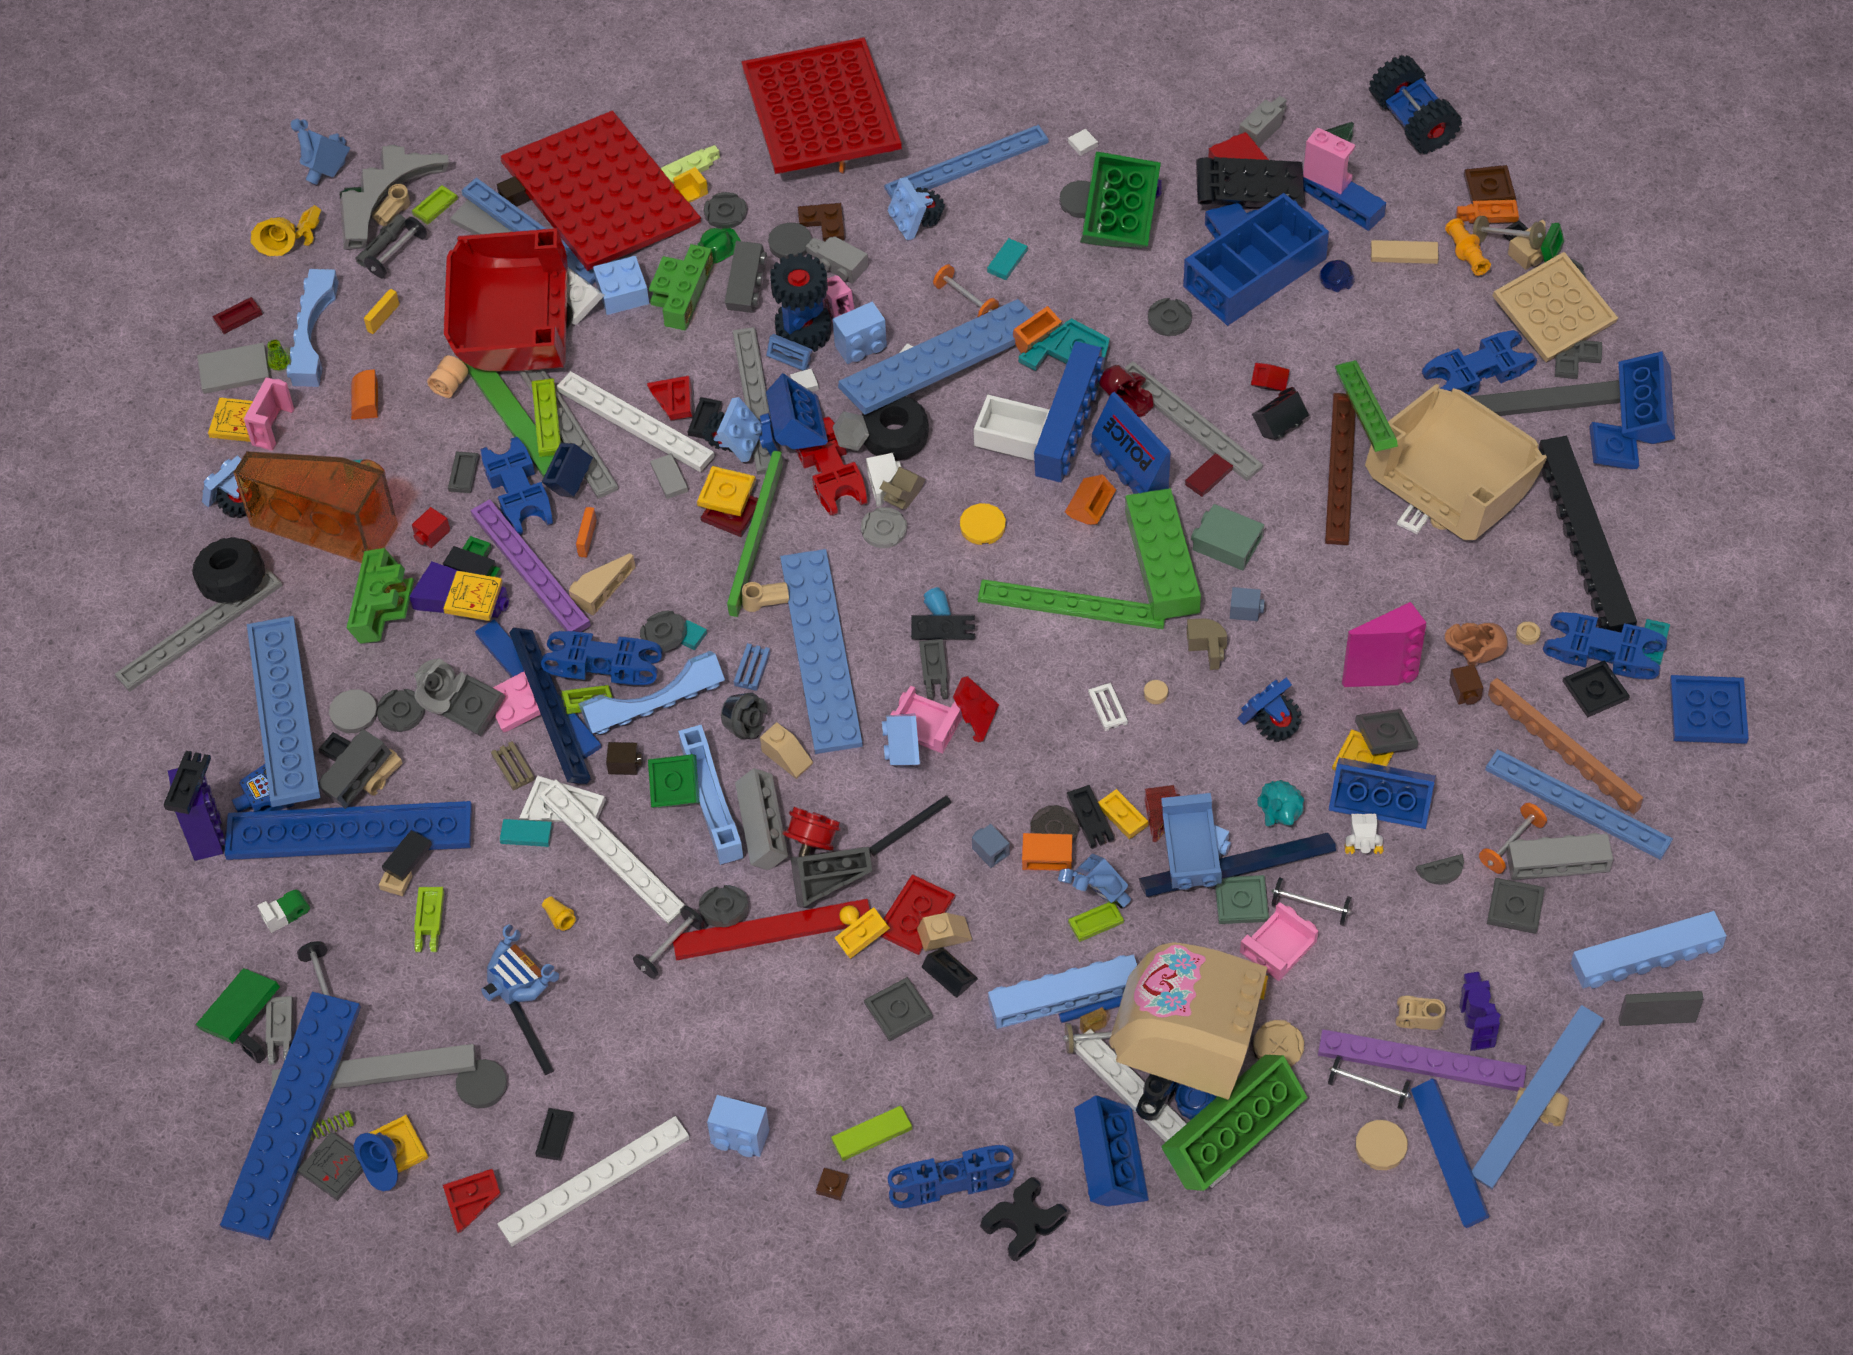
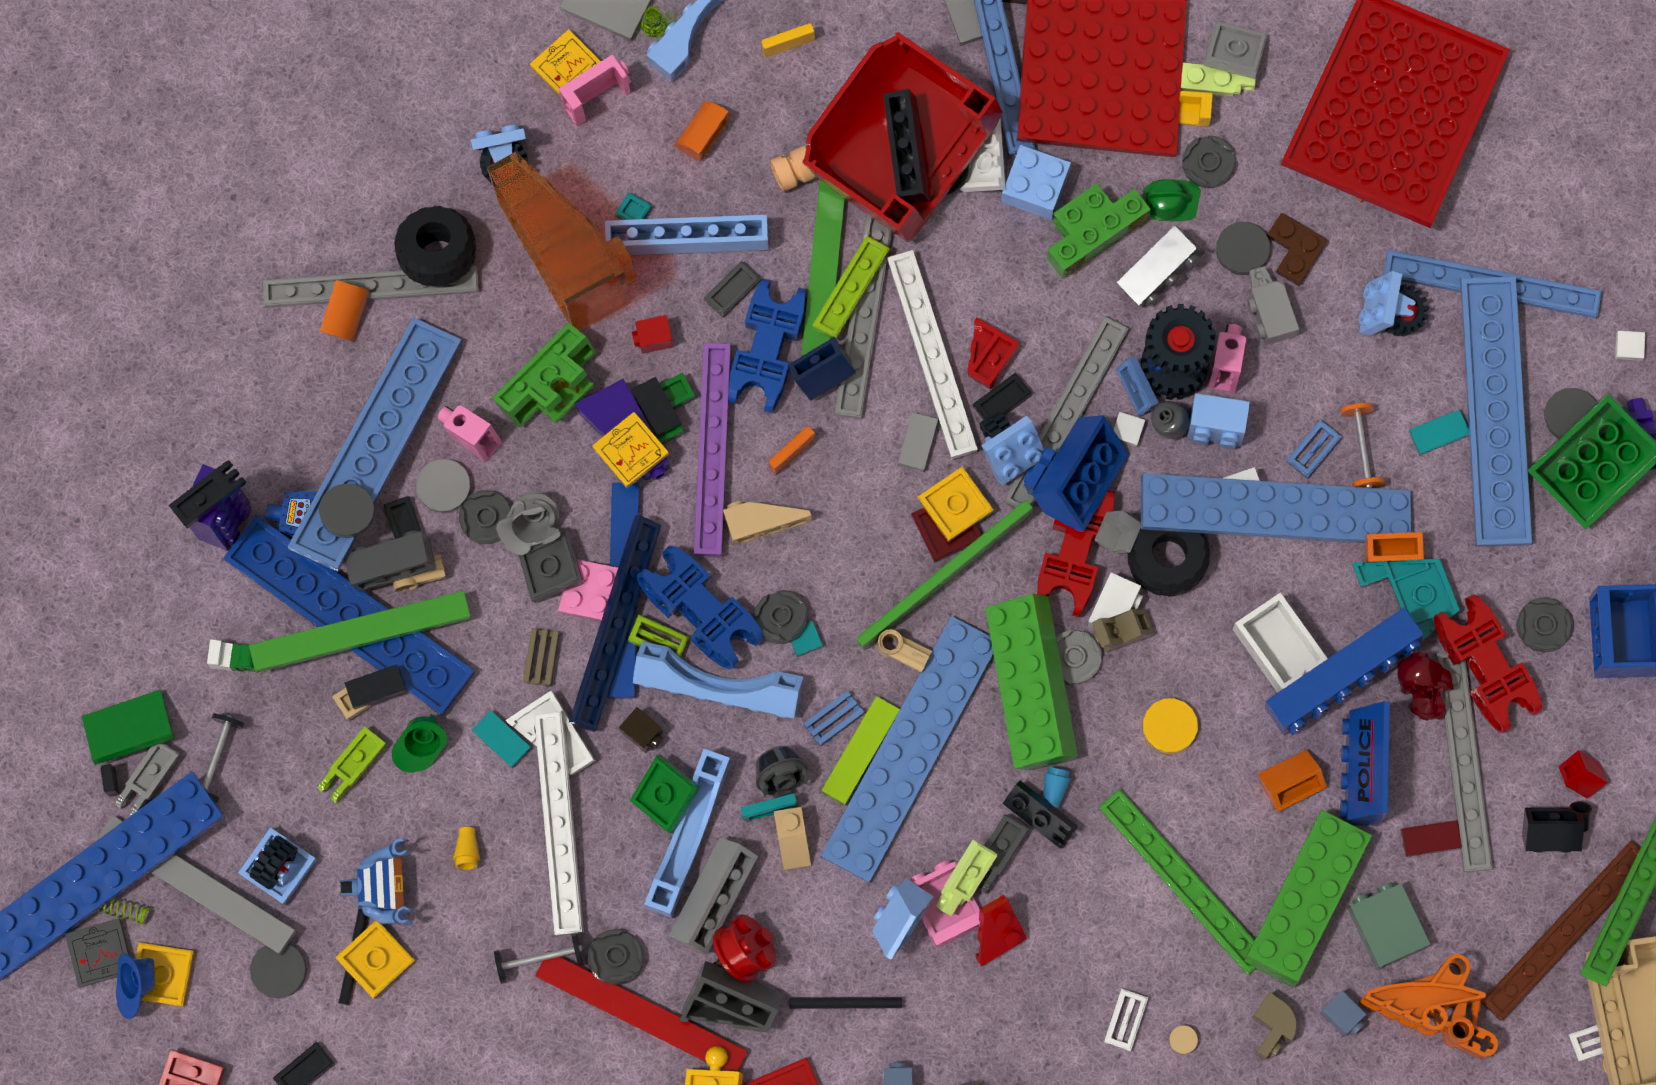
camera: 40 degrees right, 20 degrees up
(192, 650) = (344, 310): none -> orange brick
(296, 753) = (346, 510): none -> dark grey tile
(346, 661) = (470, 431): none -> bright pink torso
(366, 829) = (359, 631): none -> bright green tile
(422, 445) = (691, 234): none -> light blue brick
(425, 1015) = (277, 866): none -> plate
(469, 870) = (419, 744): none -> green piece
(513, 302) = (906, 146): none -> black brick
(548, 1026) = (374, 959): none -> yellow tile
(689, 140) = (1235, 49): none -> light grey tile
(751, 745) = (768, 807): none -> teal tile
(787, 673) = (860, 750): none -> lime tile
(828, 354) = (1170, 420): none -> dark grey head
(869, 551) = (1031, 682): none -> bright green brick
(926, 689) = (966, 877): none -> yellowish green hinge
(935, 331) = (1299, 466): none -> medium blue tile
(1033, 223) = (1495, 412): none -> medium blue plate
(1155, 354) = (1487, 663): none -> red piece
(1299, 548) = (1415, 1000): none -> orange piece

